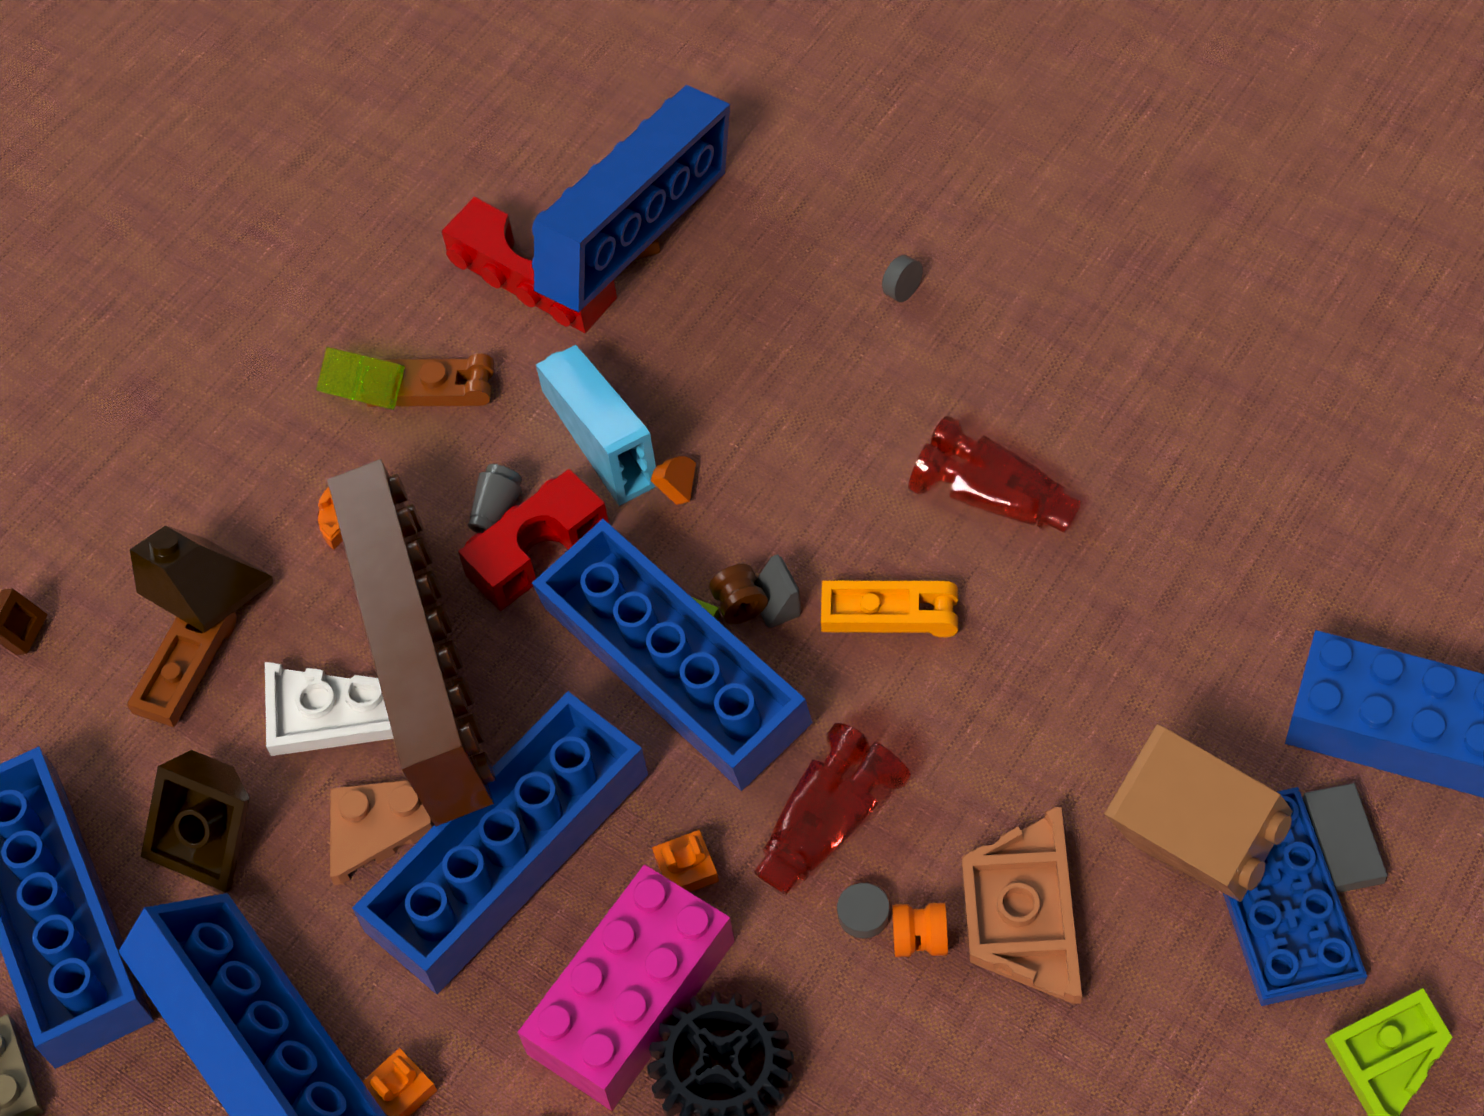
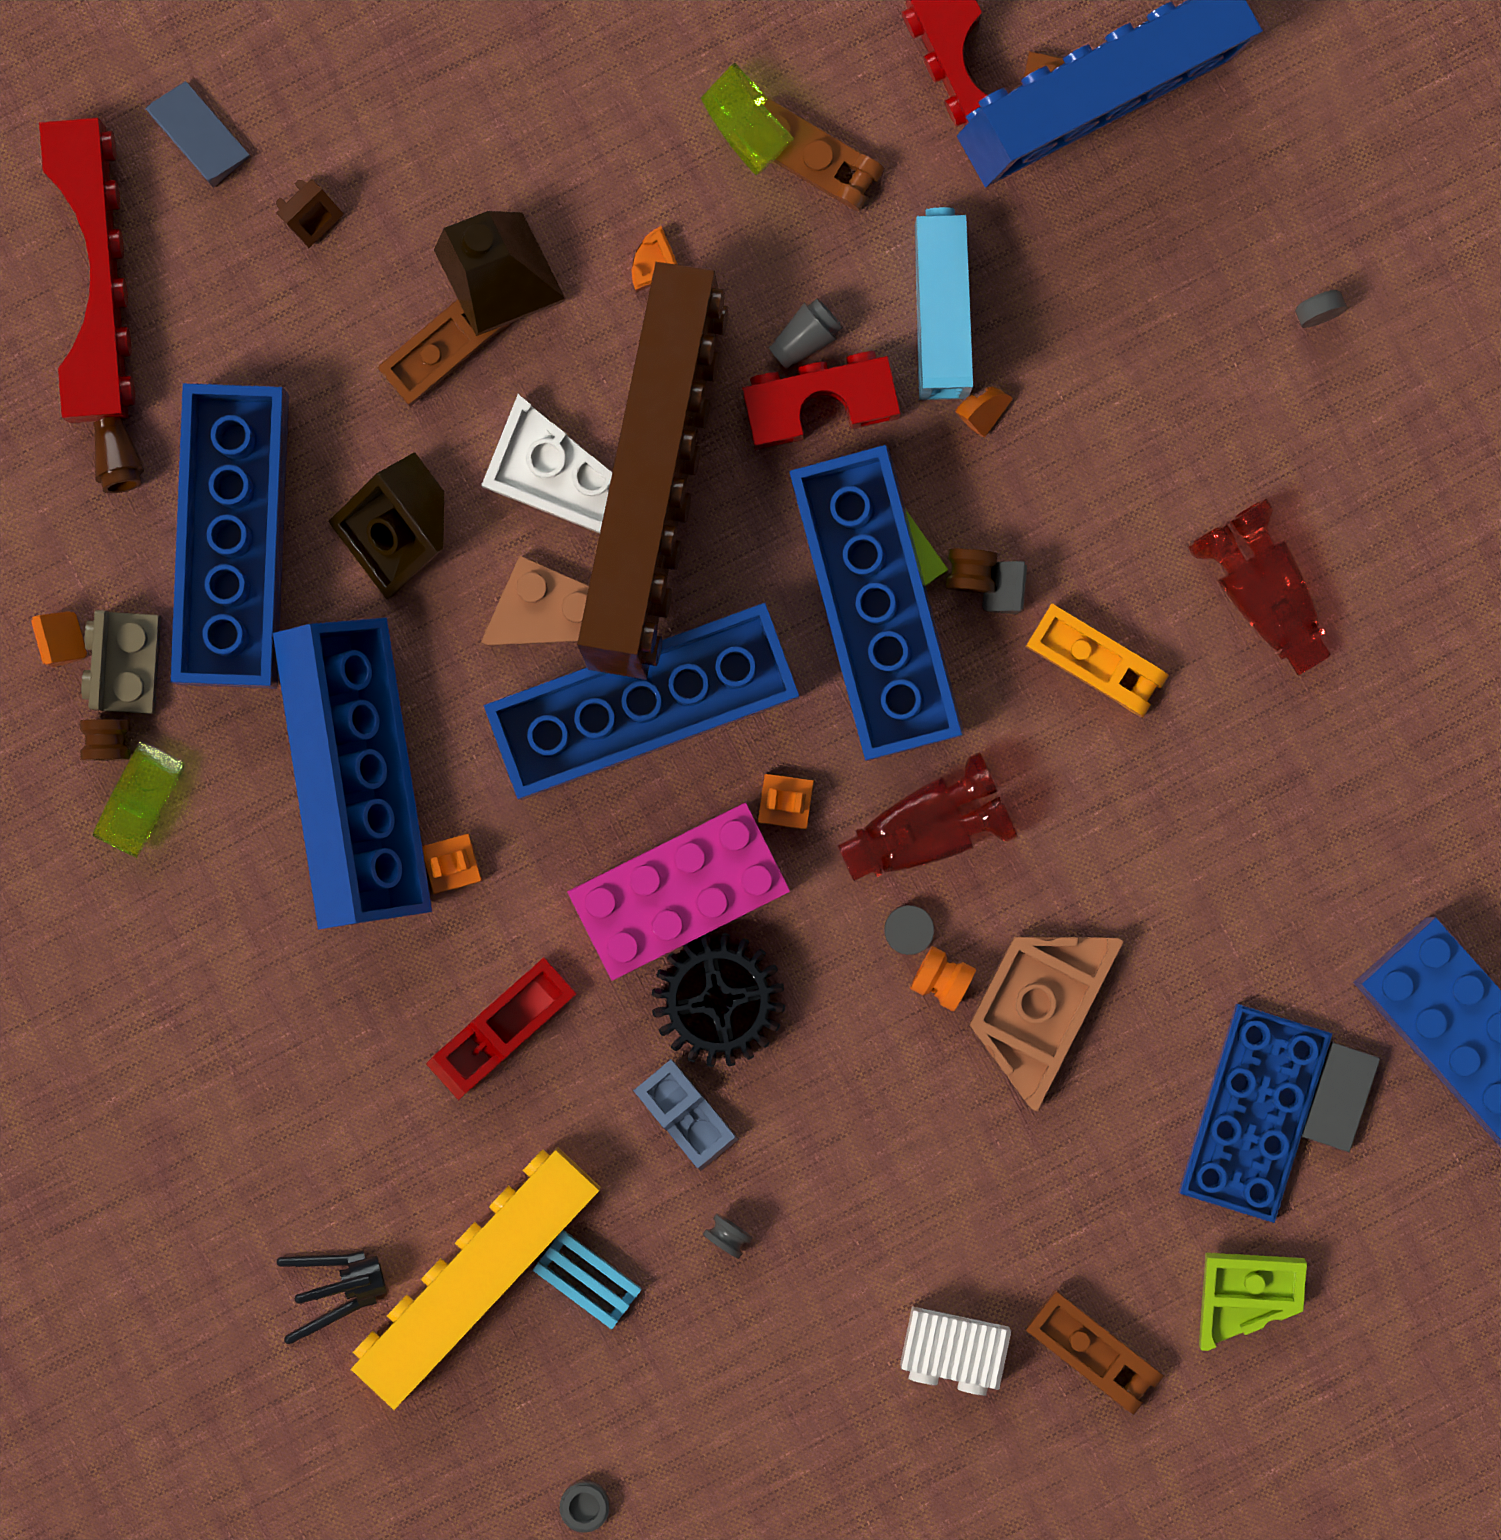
camera: 25 degrees right, 30 degrees up
(1199, 814) = (1224, 1029): medium nougat slope -> none

